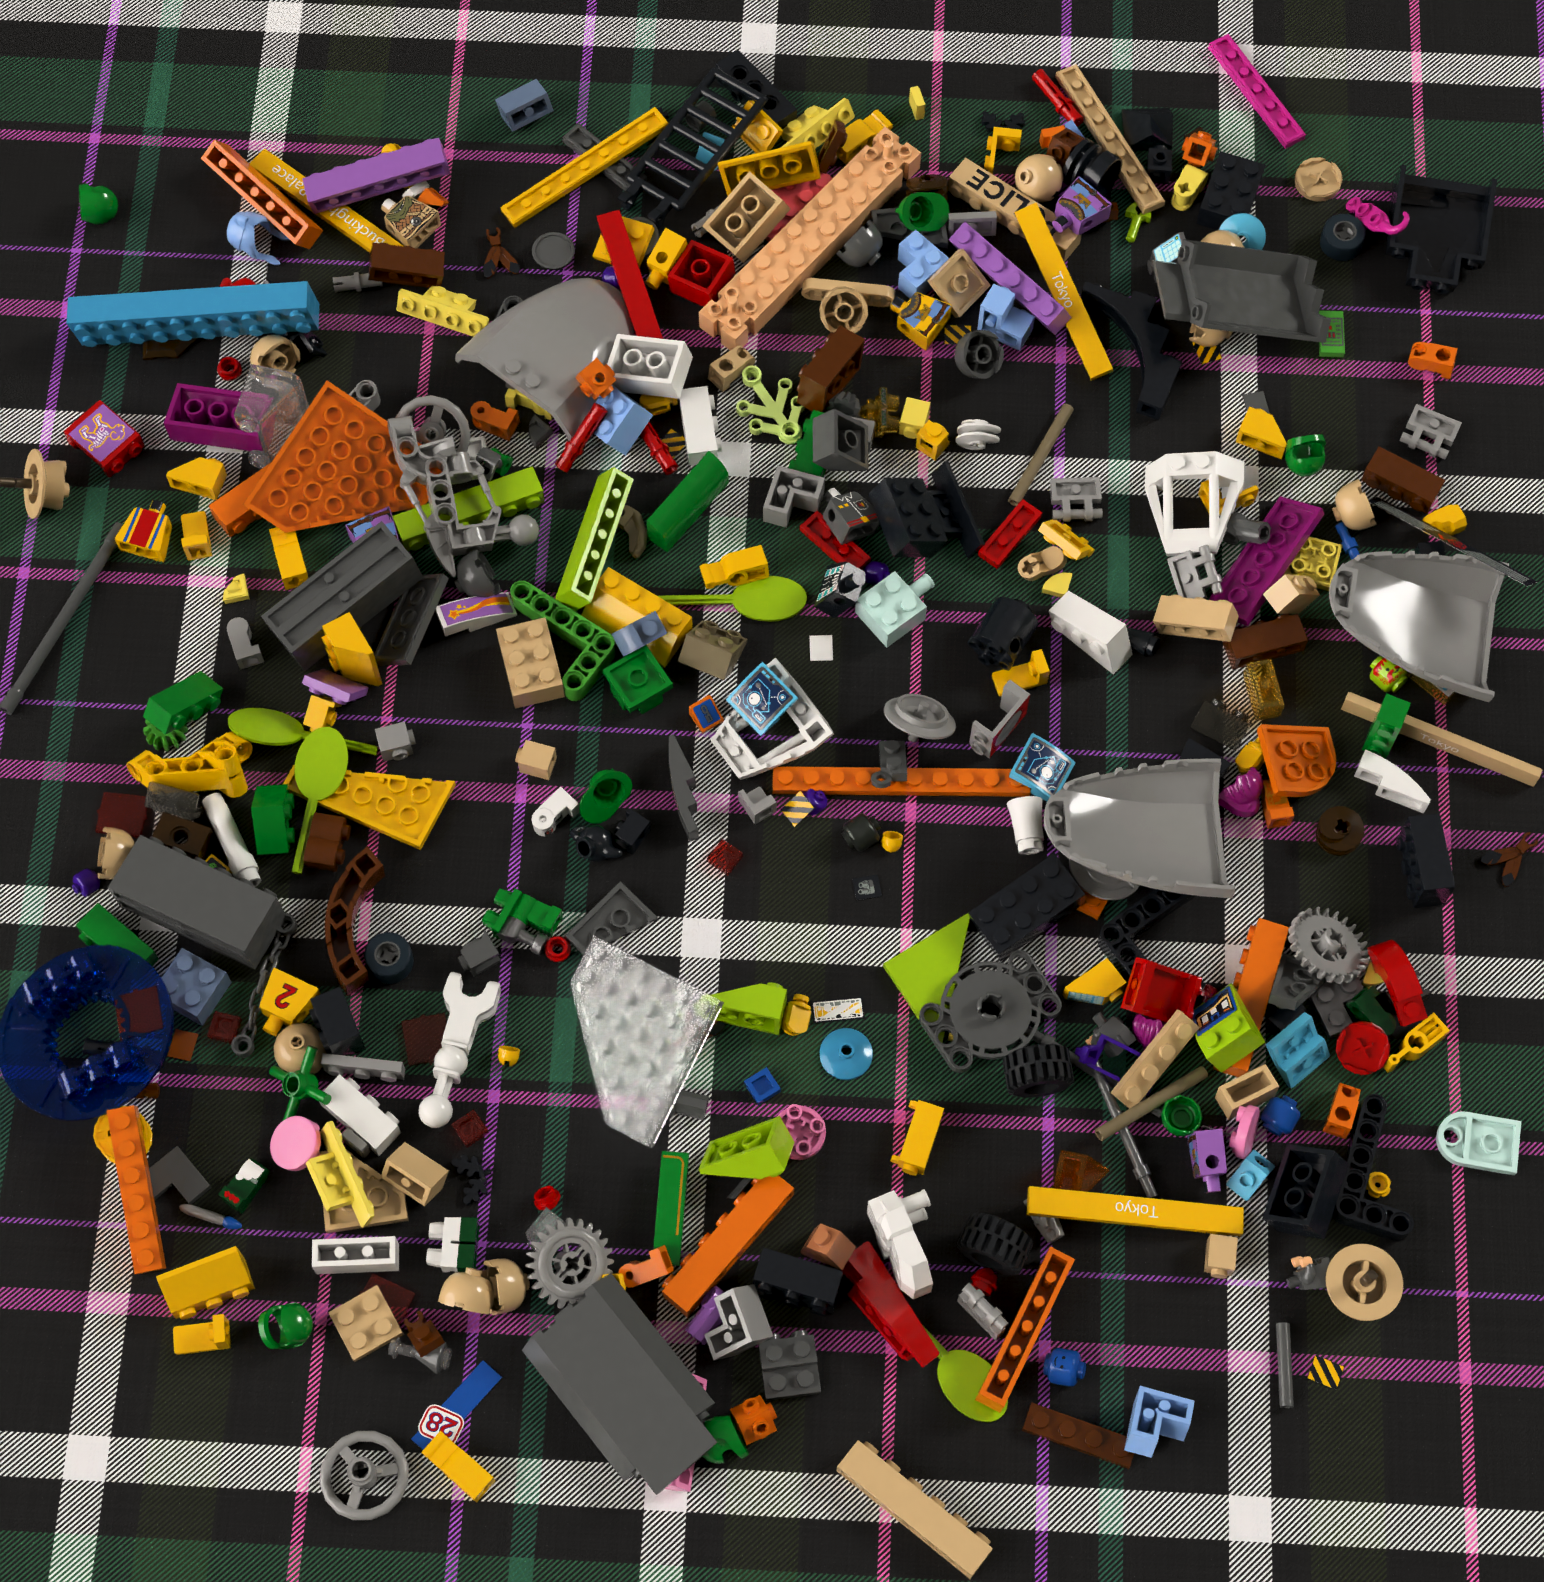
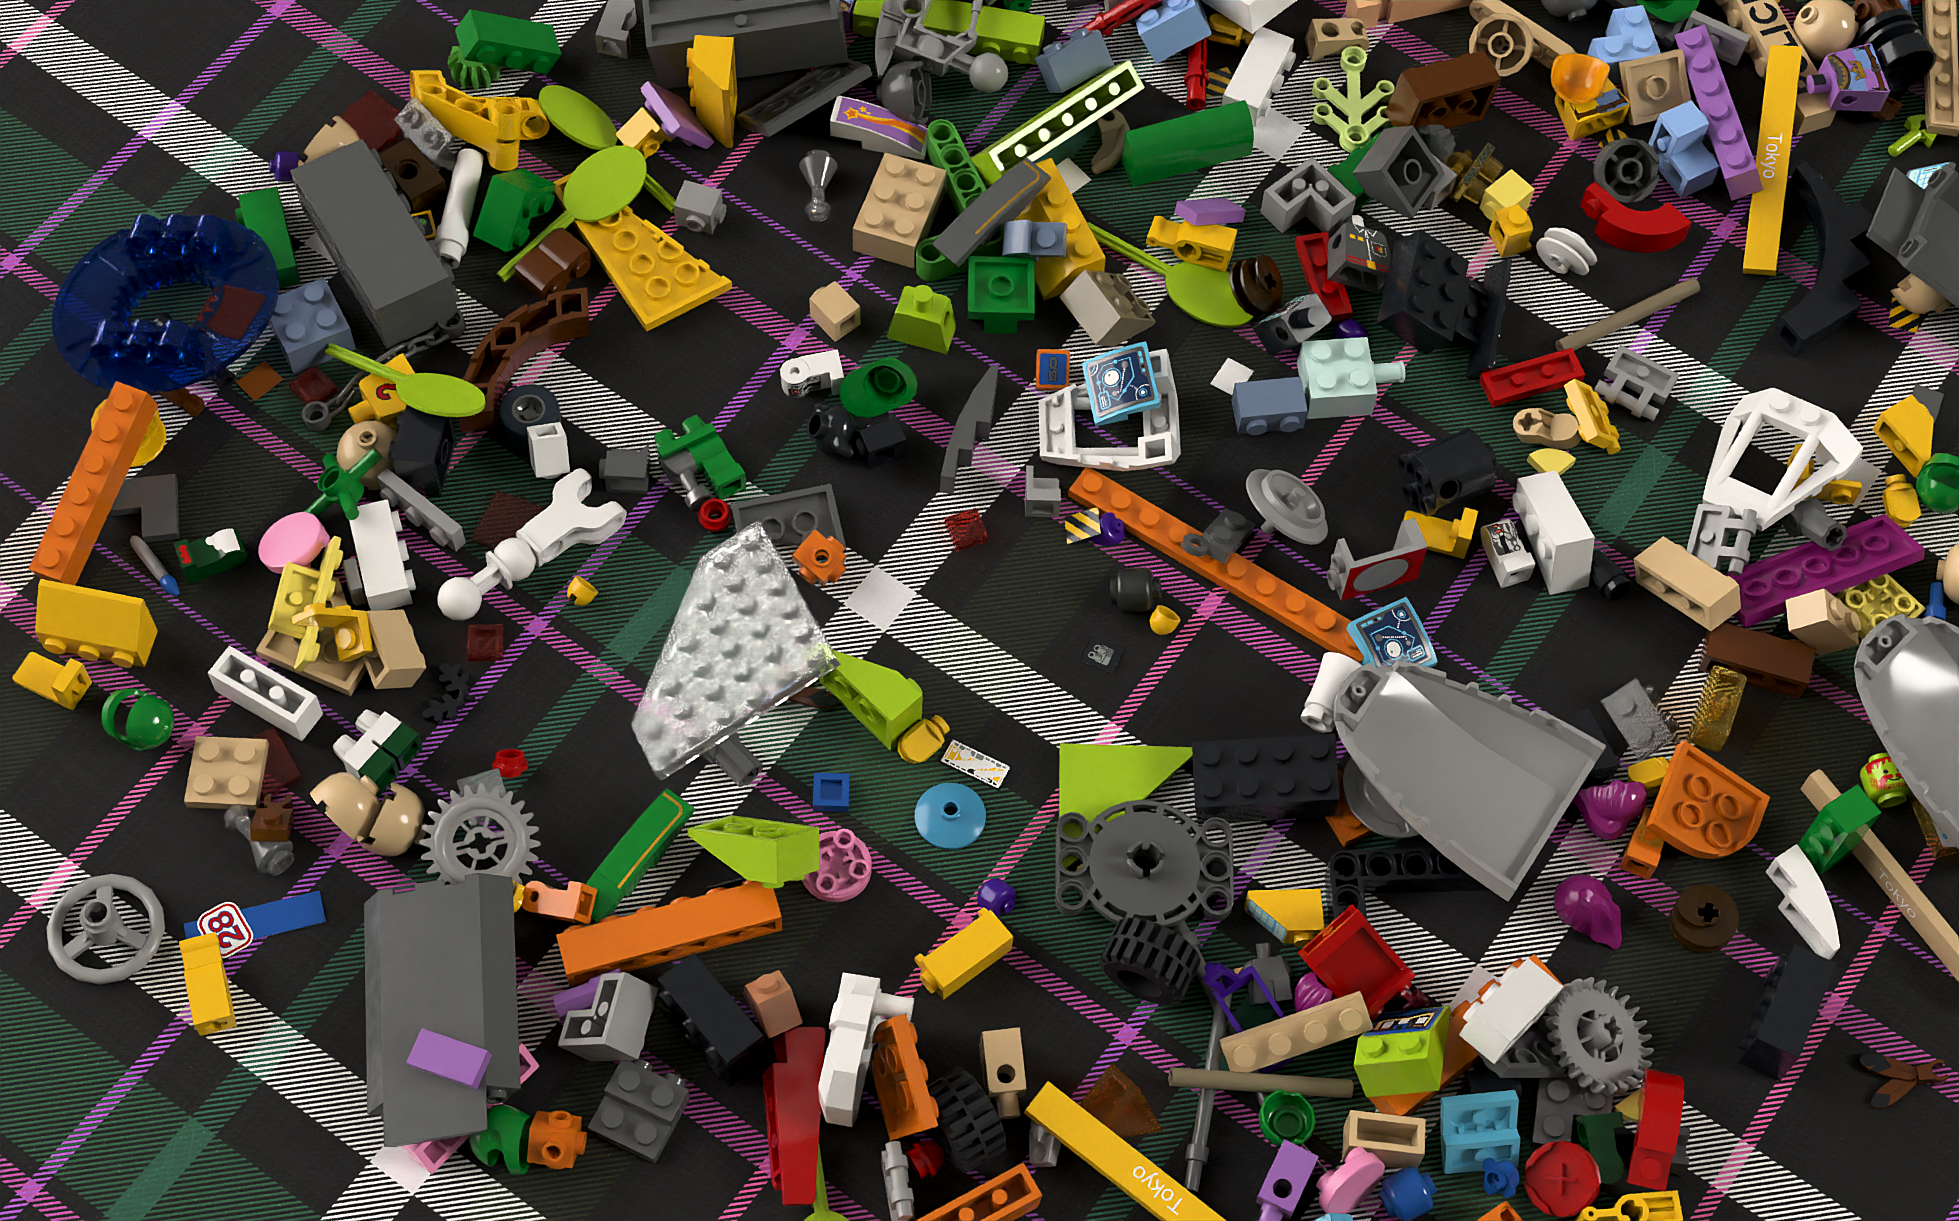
camera: 30 degrees right, 5 degrees down
(317, 985) = (423, 391): none -> lime piece
(384, 1180) = (349, 627): none -> yellow bracket
(419, 973) = (548, 450): none -> white brick
(455, 667) = (818, 170): none -> piece
(573, 486) = (1074, 60): none -> sand blue brick
(598, 629) = (990, 211): none -> dark grey slope
(599, 731) = (923, 319): none -> lime torso
(623, 567) = (1072, 175): none -> white sticker
(640, 937) = (817, 547): none -> orange brick
(660, 1414) = (449, 1059): none -> medium lavender tile
(734, 542) = (1210, 211): none -> medium lavender tile
(798, 576) = (1257, 285): none -> dark brown piece
(862, 655) = (1269, 405): none -> sand blue brick
(911, 307) = (1578, 77): none -> light orange helmet
(911, 1088) = (997, 896): none -> dark purple piece
(948, 1245) = (901, 1079): none -> orange plate
(989, 1186) = (1003, 1054): none -> tan torso
(1005, 392) = (1634, 229): none -> red arch
(1071, 663) = (1506, 553): none -> white leg
(1269, 867) = (1589, 909): none -> magenta hair
(1273, 964) = (1509, 1009): none -> white brick
(1284, 482) = (1901, 501): none -> yellow arm
(1330, 1066) = (1500, 1177): none -> blue plate

